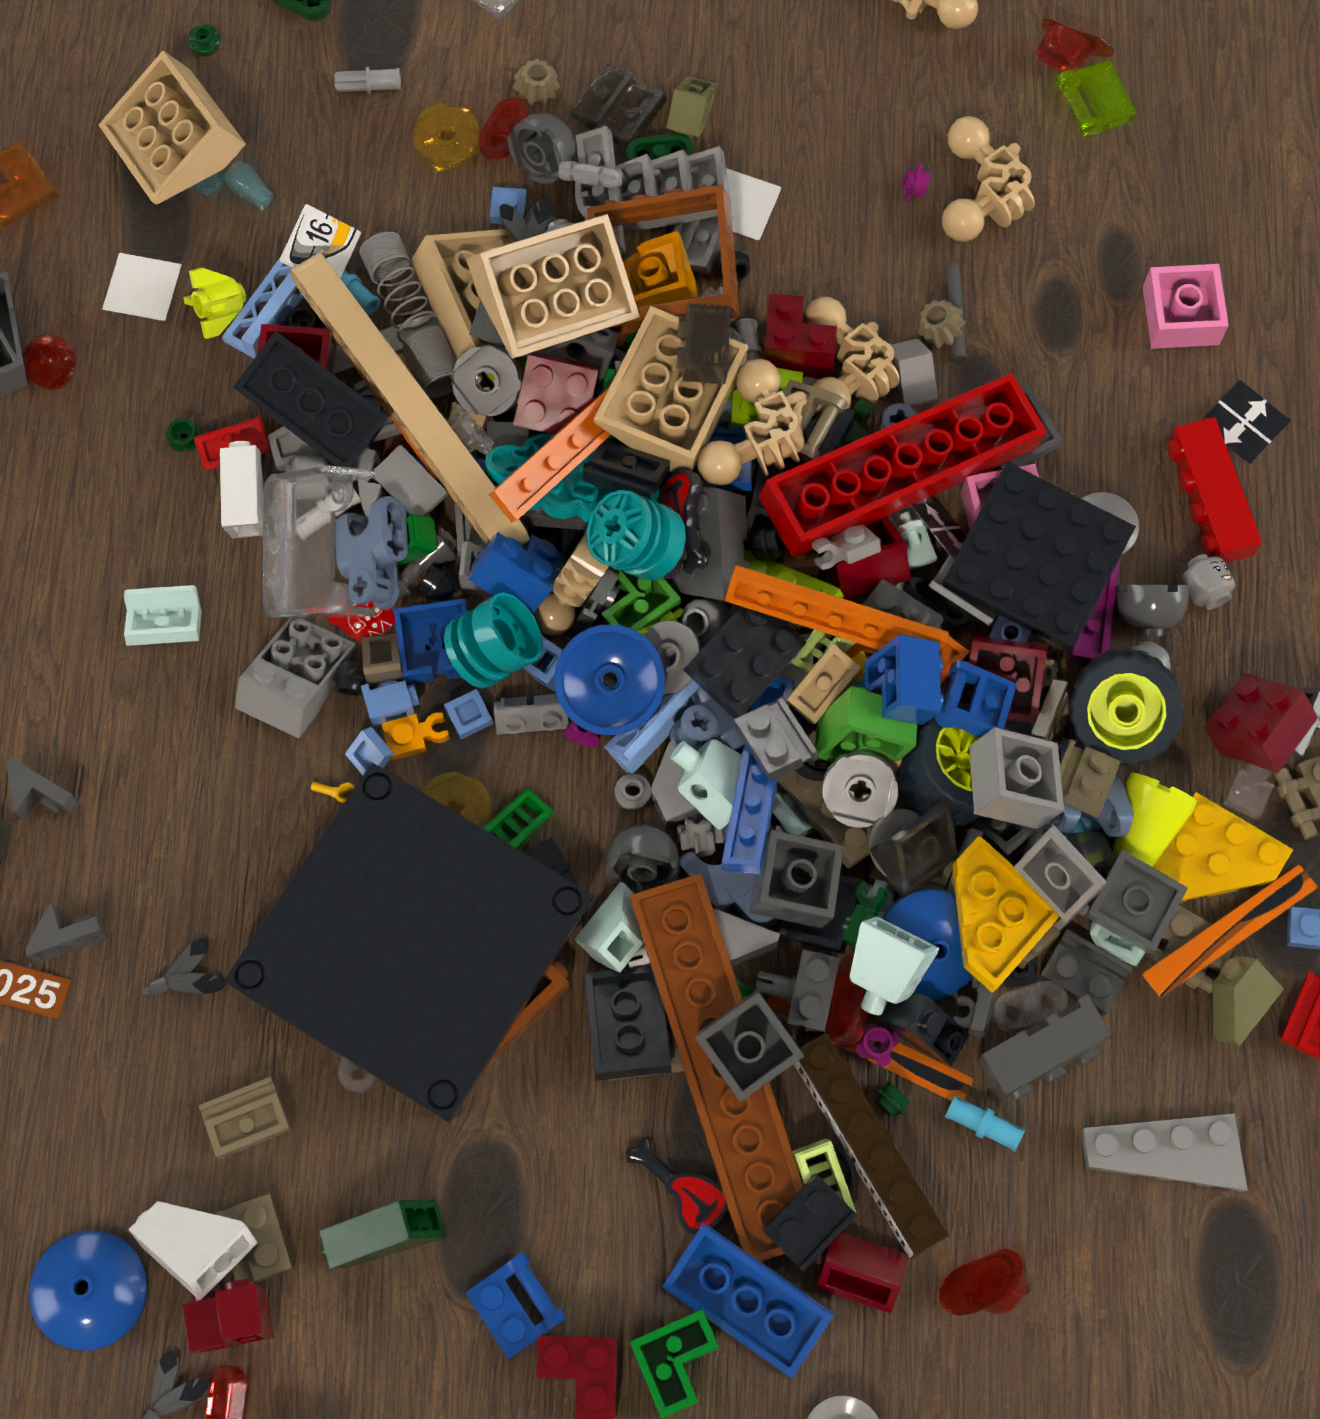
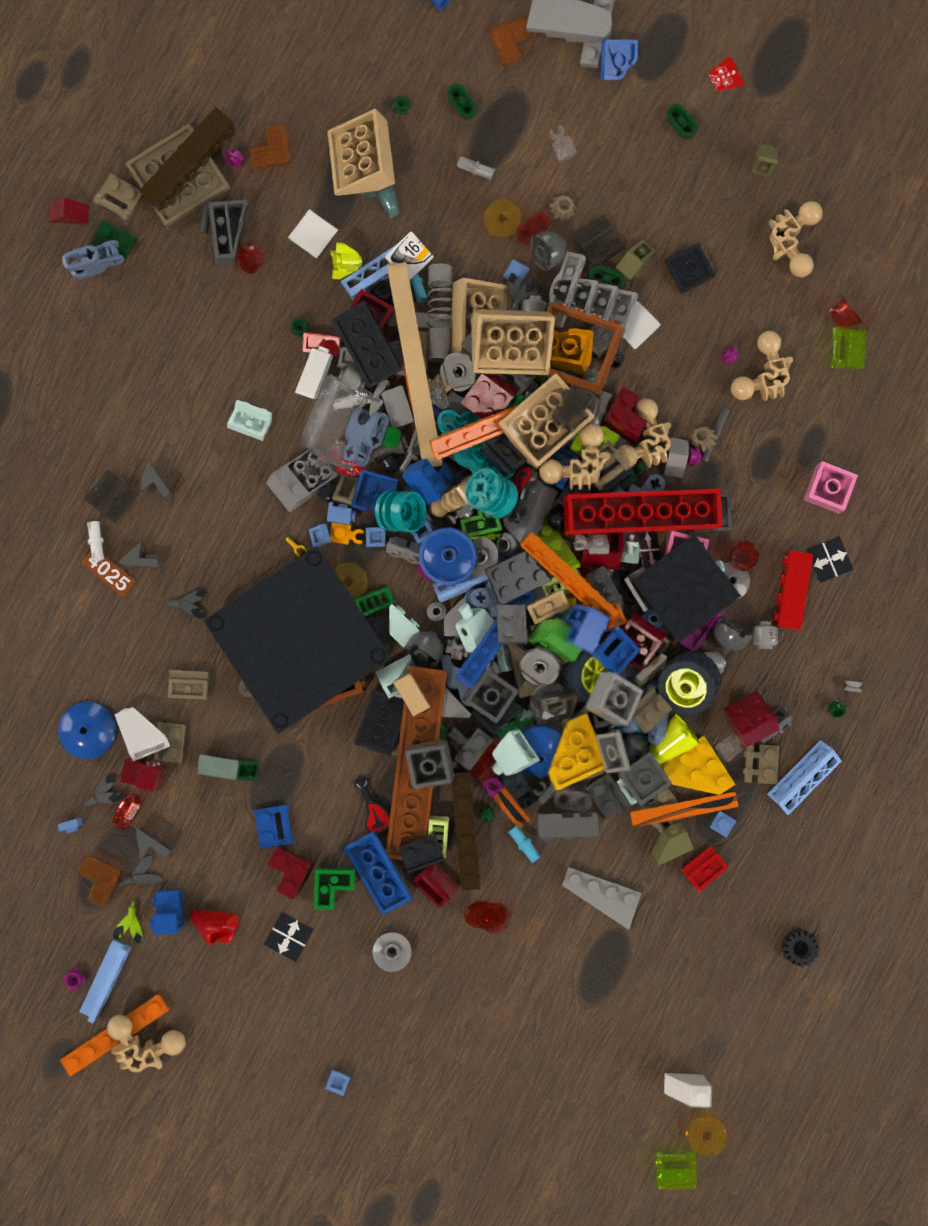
camera: 20 degrees right, 15 degrees up
(582, 841) = (400, 627): none -> light aqua slope
(590, 174) = (561, 278): light grey axle -> none
(658, 939) = (411, 694): none -> tan slope
(784, 85) = (689, 268): none -> black plate
(942, 355) = (694, 456): none -> magenta plate
(1104, 472) = (744, 556): none -> clear red hair

